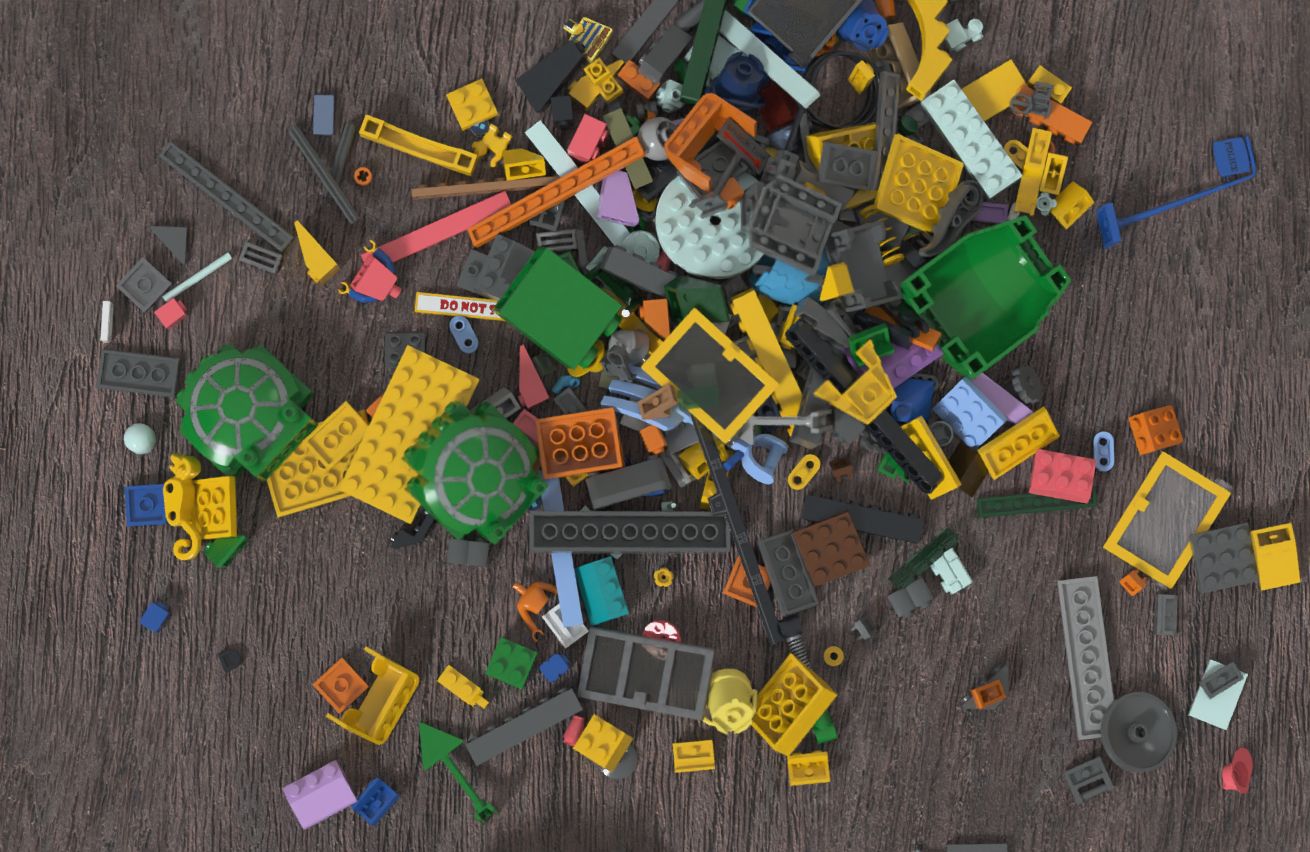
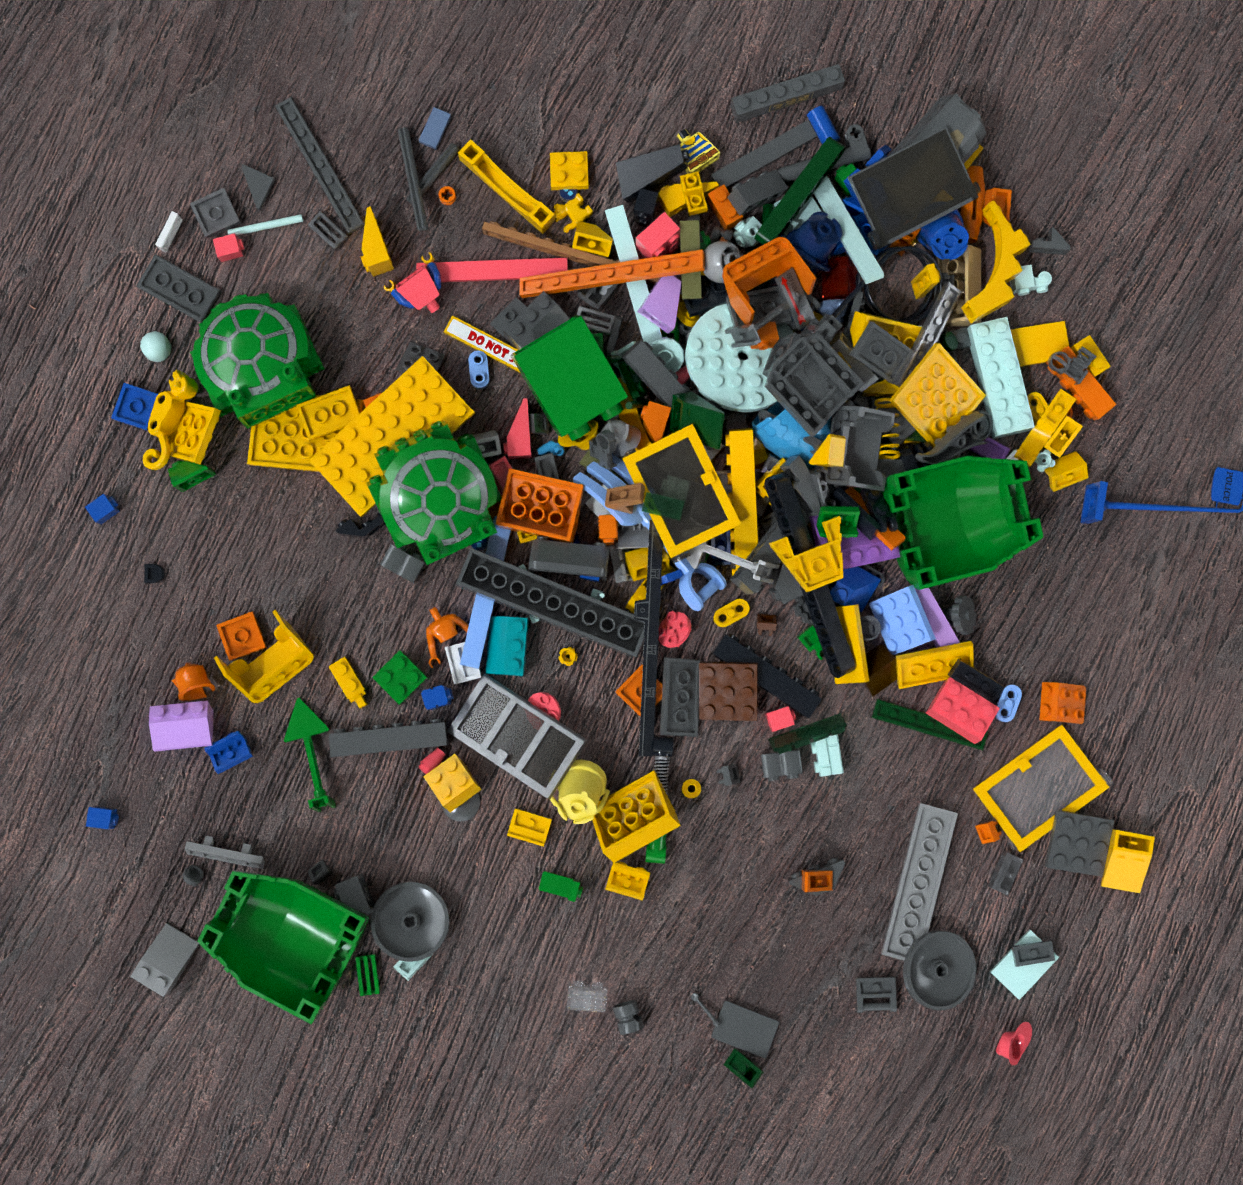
camera: 20 degrees right, 0 degrees up
(310, 748) = (190, 682): none -> orange helmet
(746, 799) = (560, 886): none -> green bracket
(749, 509) = (669, 625): none -> coral plate
(892, 554) = (780, 718): none -> coral brick
(1064, 442) = (976, 680): none -> black plate

